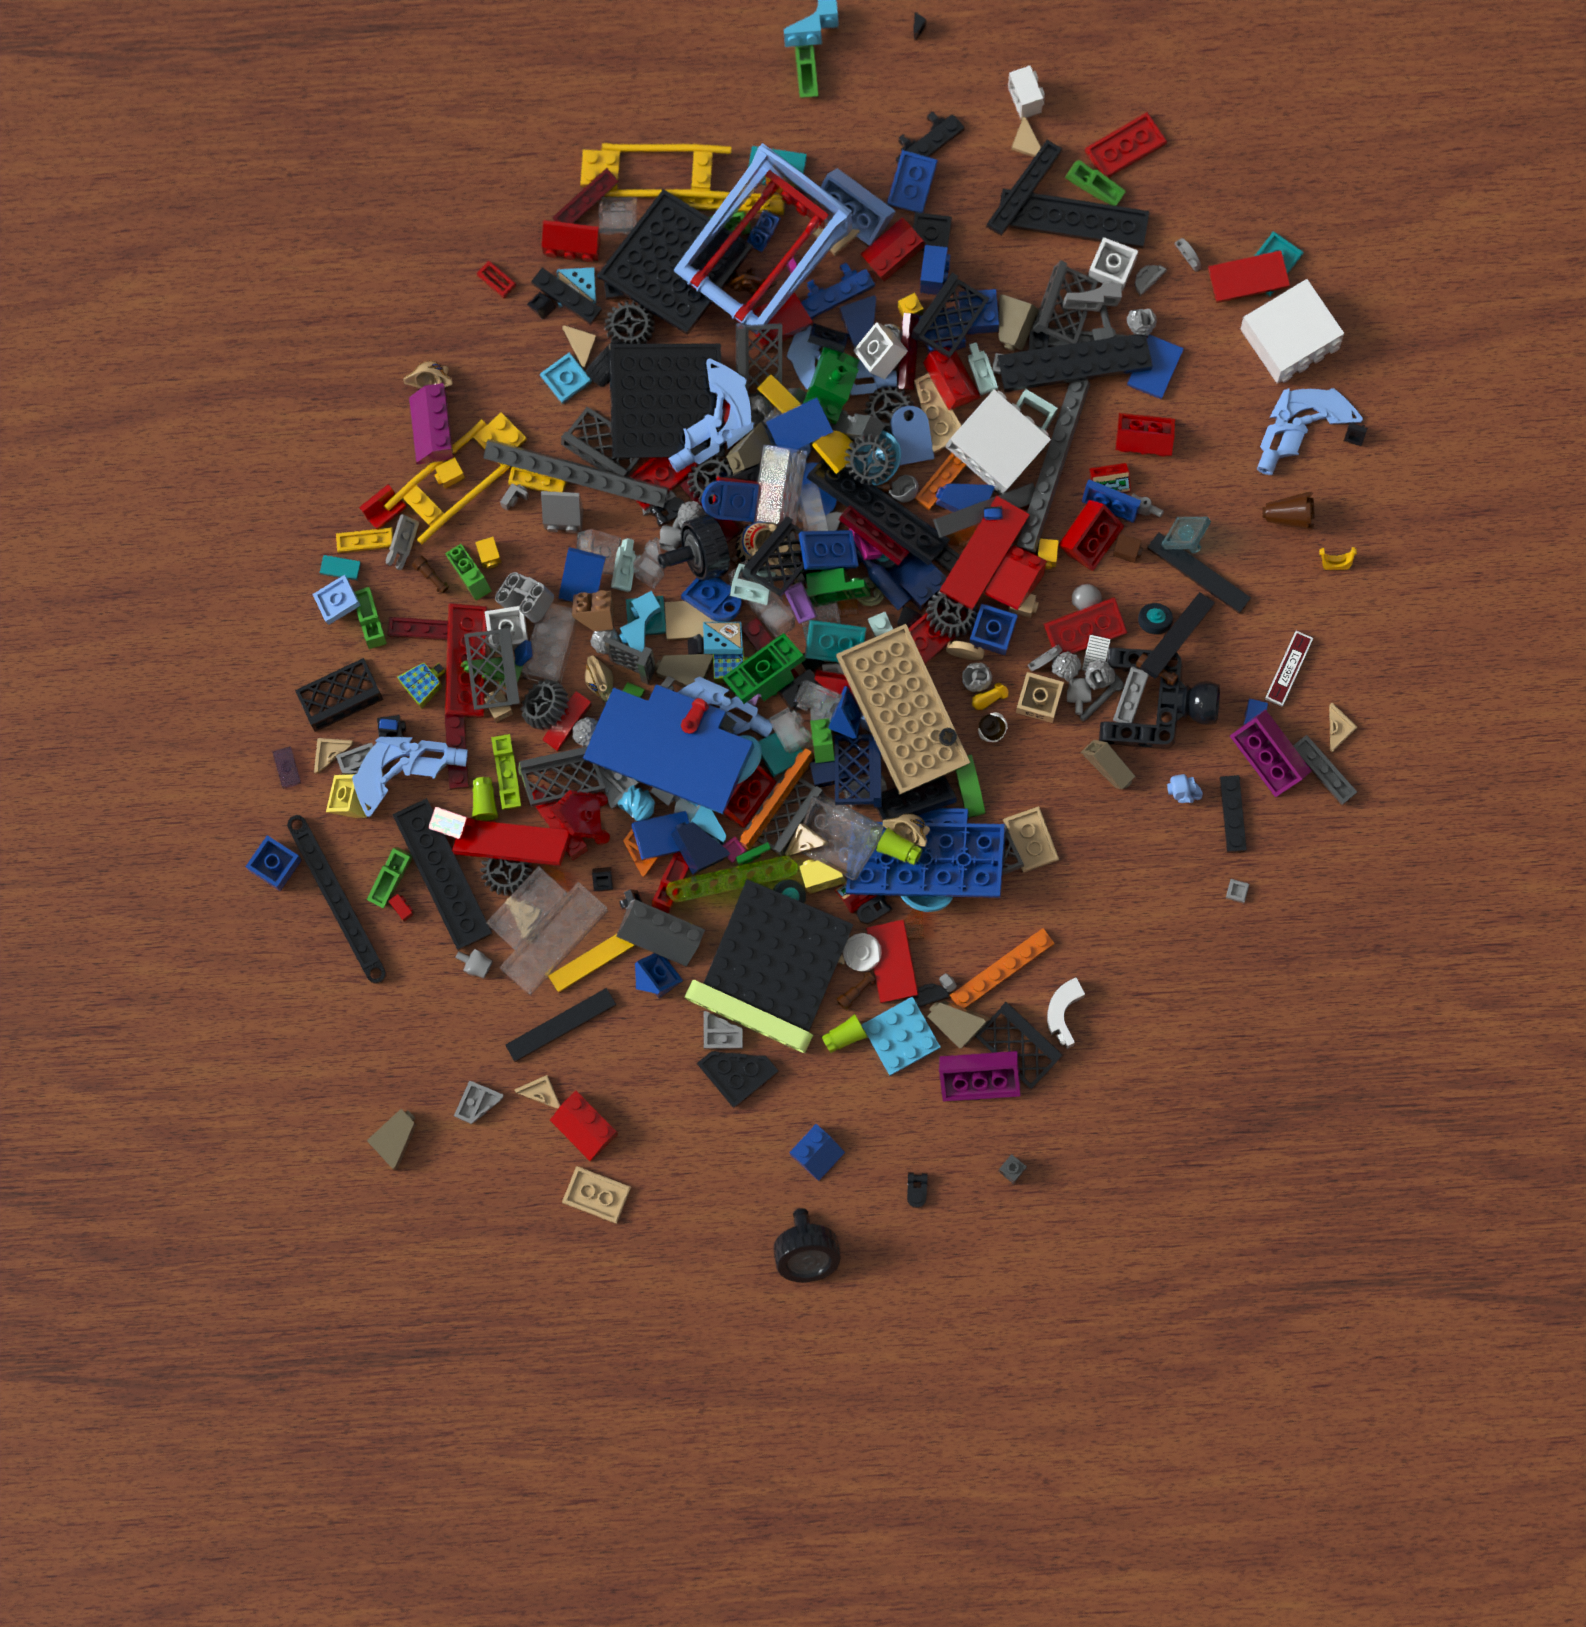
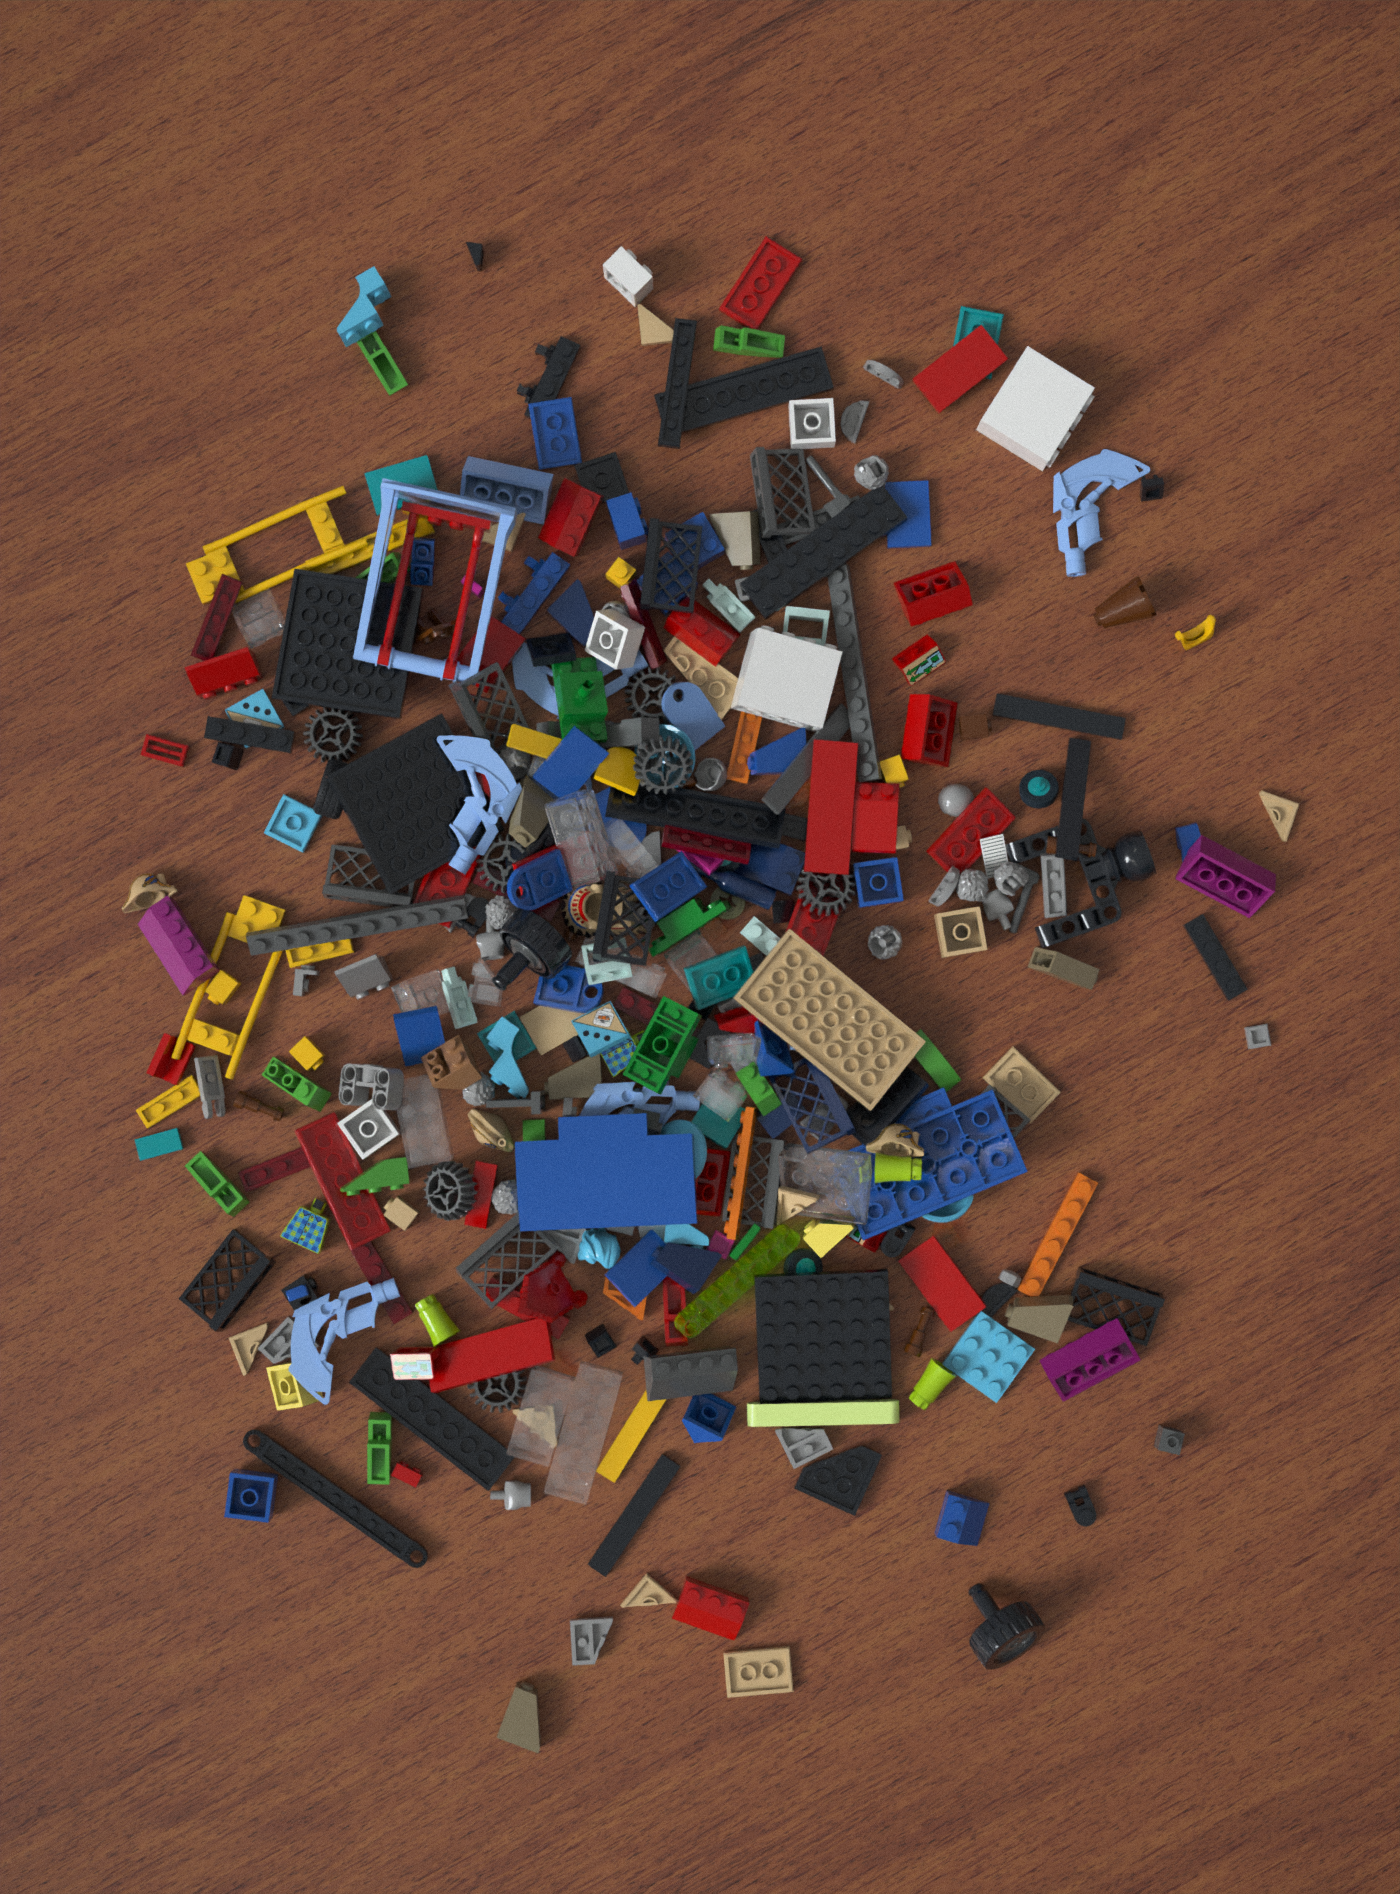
camera: 35 degrees left, 10 degrees up
(286, 767) = (212, 1384): plate -> none
(336, 599) = (173, 1183): light blue plate -> none
(506, 772) = (445, 1279): lime slope -> none
(508, 665) = (394, 1173): dark grey fence -> none
(523, 653) = (400, 1148): blue tile -> none
(581, 343) = (291, 778): tan tile -> none
(693, 718) = (616, 1142): red piece -> none
(800, 602) = (666, 956): medium lavender tile -> none
(862, 952) = (907, 1289): white tile -> none
(949, 731) = (884, 1028): black bush -> none
(965, 650) = (859, 920): tan tile -> none
(985, 699) = (903, 961): yellow piece -> none
(992, 727) = (926, 987): dark brown hair -> none
(993, 513) = (820, 761): blue piece -> none
(1062, 998) = (1133, 1245): white arch -> none
(1108, 294) = (822, 460): light grey slope -> none
(1117, 502) = (935, 685): blue tile -> none
(1146, 507) = (963, 673): light grey piece -> none
(1184, 789) = (1155, 957): light blue head -> none
(1186, 533) = (1029, 682): clear light blue tile -> none
(1289, 668) = (1200, 774): tile -> none
(1325, 770) = (1287, 866): dark grey plate -> none

